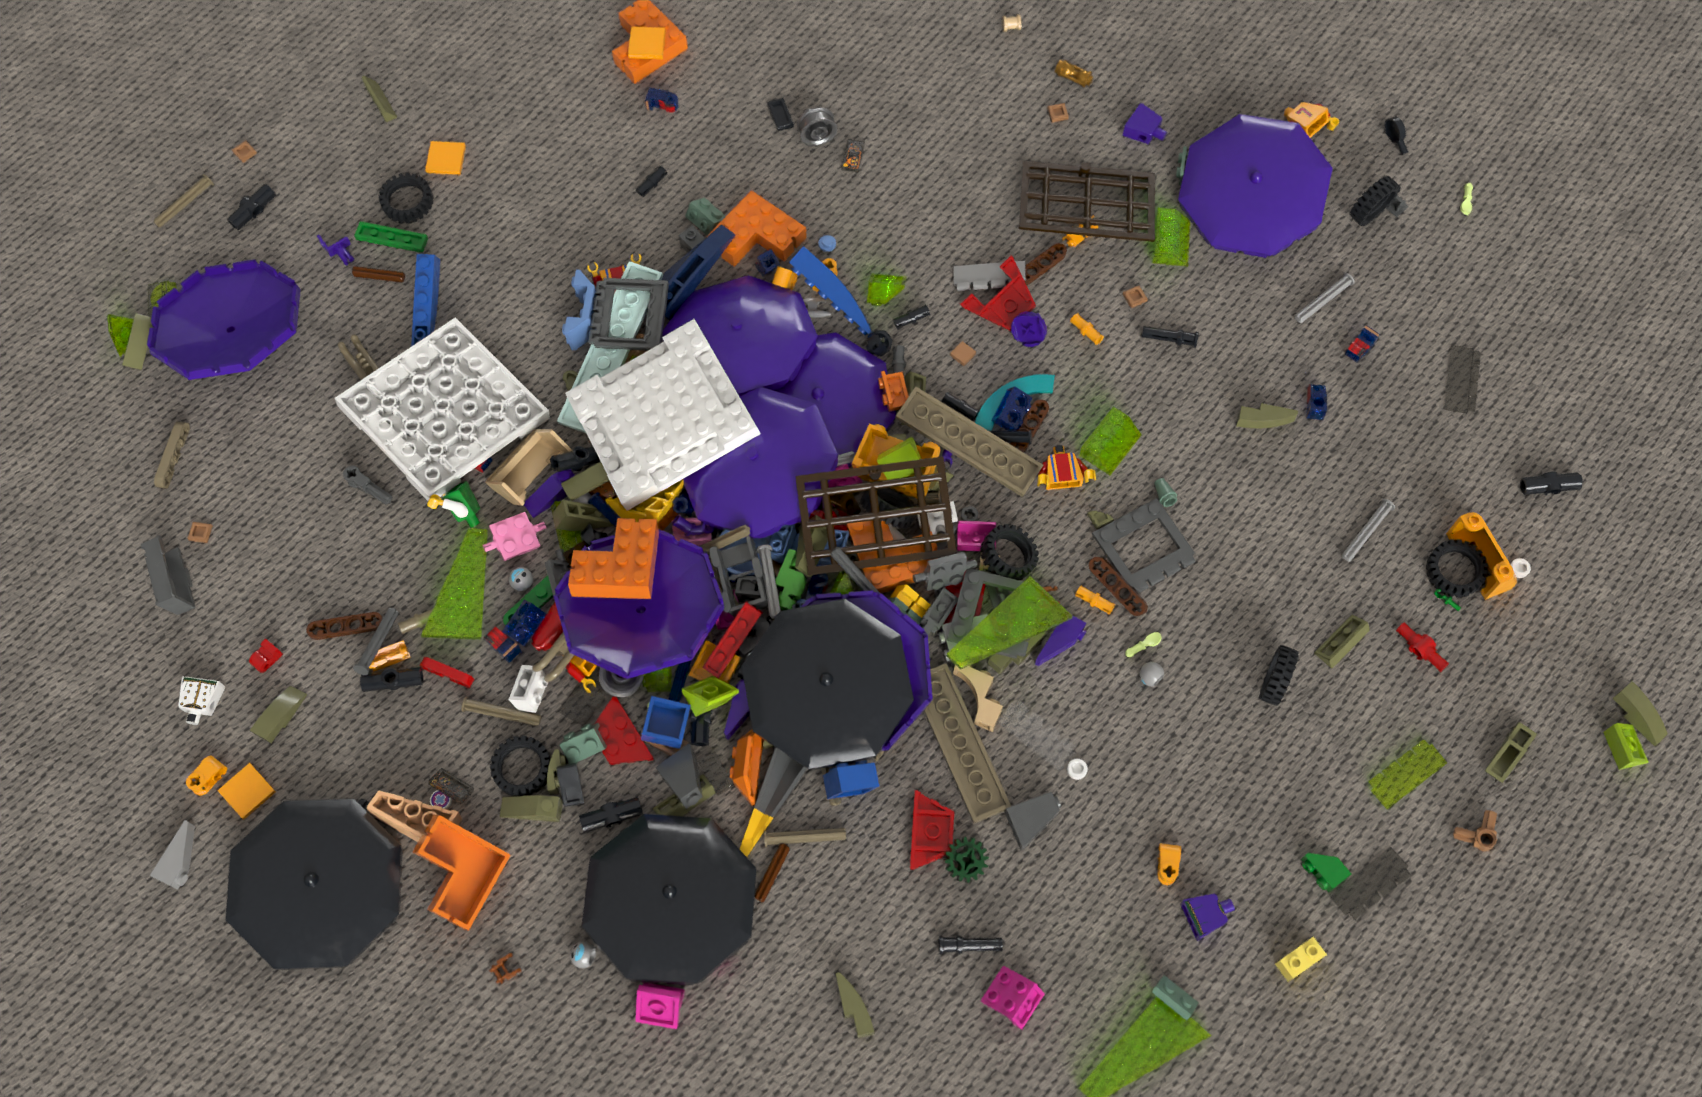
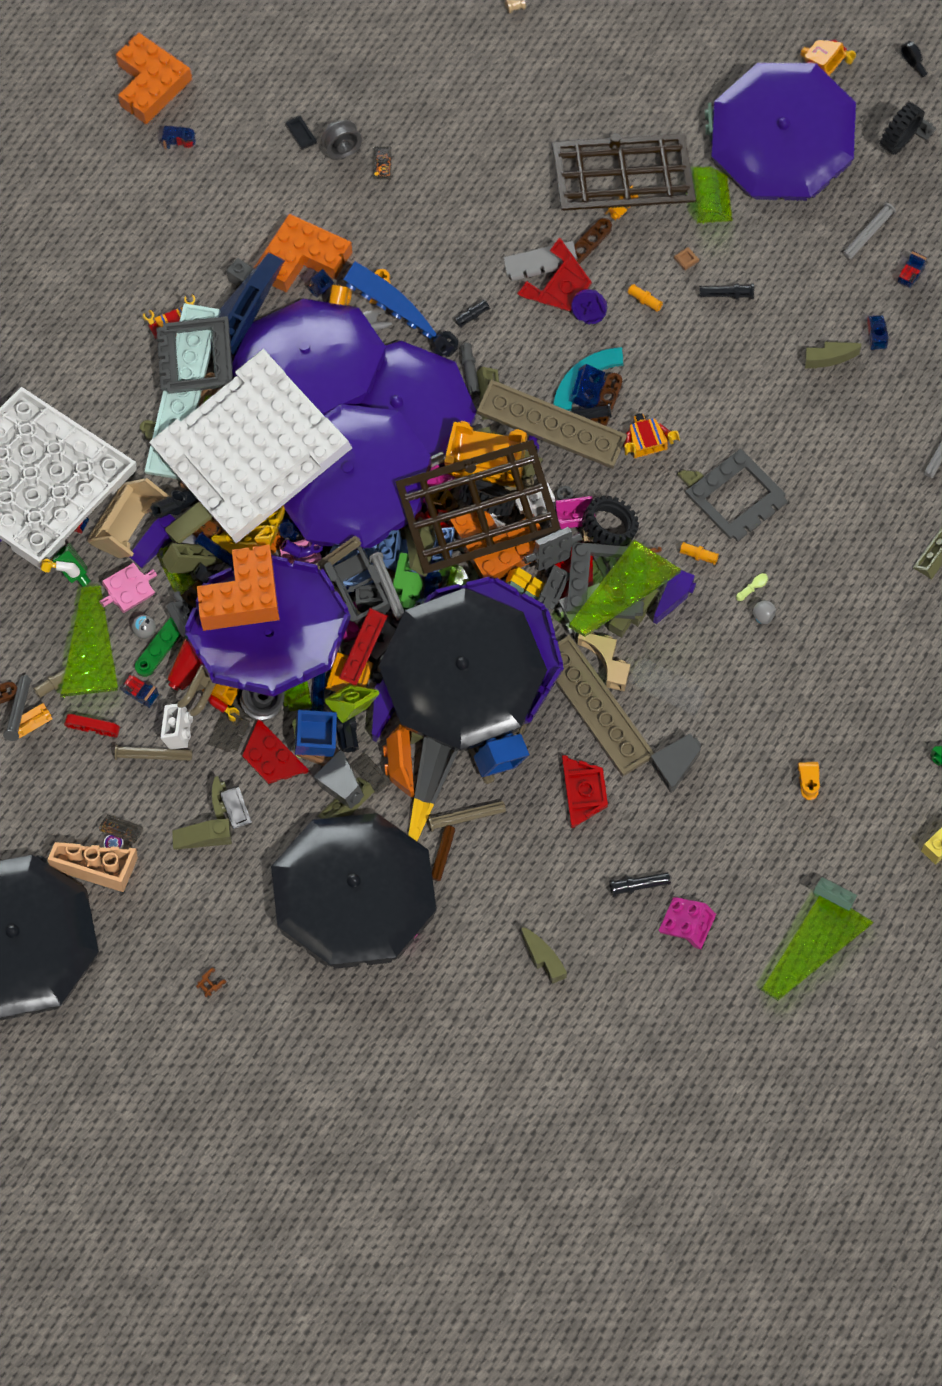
camera: 10 degrees left, 0 degrees up
(404, 678) = (51, 737): black piece -> none
(471, 868) = (160, 896): orange piece -> none
(511, 745) = (176, 778): black tyre -> none
(524, 622) = (157, 666): clear blue brick -> none
(578, 328) = (146, 378): medium blue slope -> none
(583, 743) = (239, 767): sand green bracket -> none
(583, 954) = (281, 956): light grey piece -> none
(611, 814) = (280, 827): black piece -> none
(647, 42) = (152, 81): light orange tile -> none
(651, 181) = (185, 220): black pin -> none
(659, 1005) = (362, 987): dark pink bracket -> none
(704, 215) = (246, 246): sand green bracket -> none
(827, 243) = (374, 254): medium blue plate -> none
(850, 568) = (464, 561): dark grey axle -> none
(884, 287) = (440, 289): clear neon green slope -> none
(894, 390) = (470, 387): orange bracket -> none
(901, 452) = (490, 443): lime slope -> none
(960, 406) = (536, 391): black pin -> none
(963, 353) = (529, 341): medium nougat tile -> none
(968, 851) = (623, 800): dark green gear -> none
(1057, 112) = (578, 87): medium nougat tile -> none
(1069, 71) = (581, 43): pearl gold piece -> none
(1077, 769) = (710, 710): white tile -> none
(1110, 441) = (687, 402): clear neon green slope -> none
(1119, 584) = (719, 535): reddish brown beam -> none
(1144, 125) = (666, 87): dark purple torso -> none
(1165, 493) = (748, 443): sand green cone -> none
(1206, 914) = (851, 817): dark purple torso -> none
(1279, 675) = (882, 591): black tyre -> none

